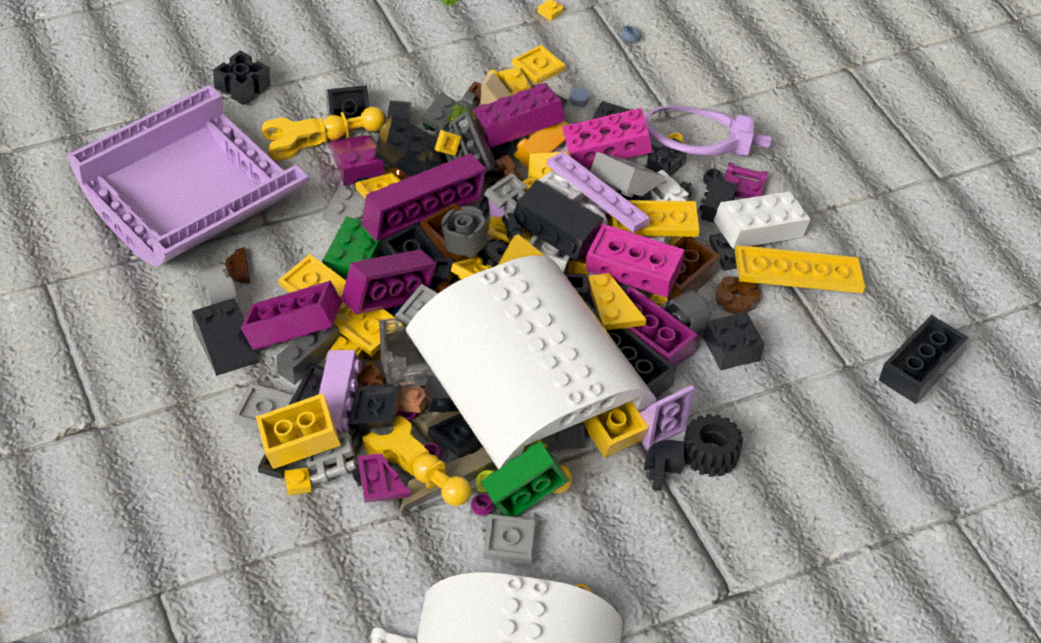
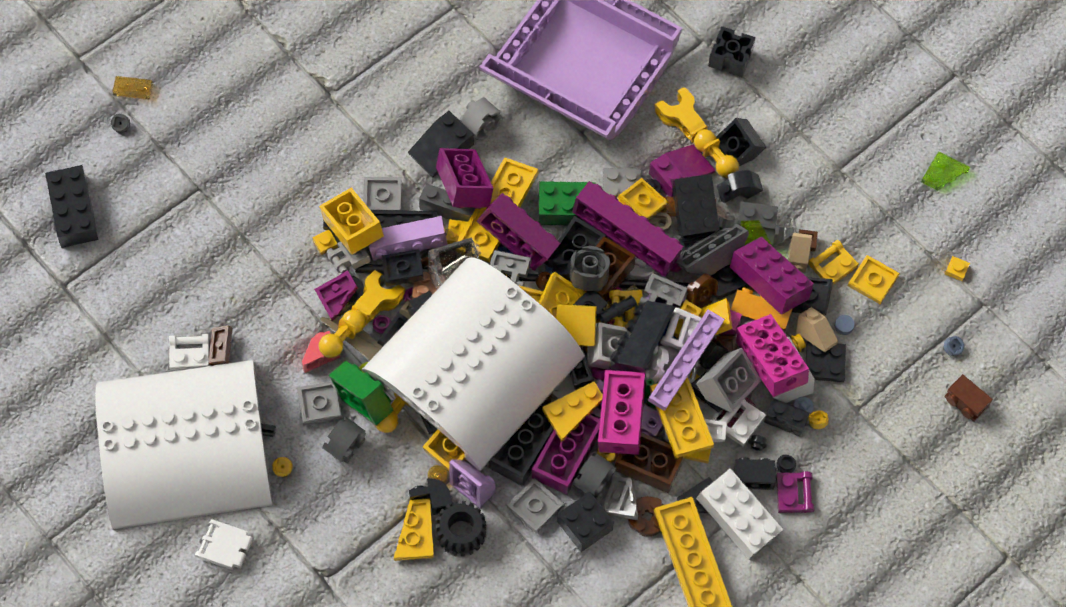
camera: 75 degrees right, 15 degrees up
(237, 266) = (523, 127): reddish brown tile -> none
(395, 619) = (220, 345): none -> plate
(442, 520) = (313, 357): none -> coral slope
(447, 142) = (708, 229): yellow plate -> none
(572, 520) = (344, 439): none -> dark grey brick
(581, 109) = (816, 329): none -> tan slope
(636, 454) = (438, 472): none -> clear yellow tile
(687, 39) = (968, 398): none -> copper brick
(702, 489) = (416, 534): none -> yellow wing
(703, 376) = (535, 505): none -> light grey plate
(722, 302) = (621, 499): none -> light grey wing
(739, 139) = (831, 474): lavender brick -> none

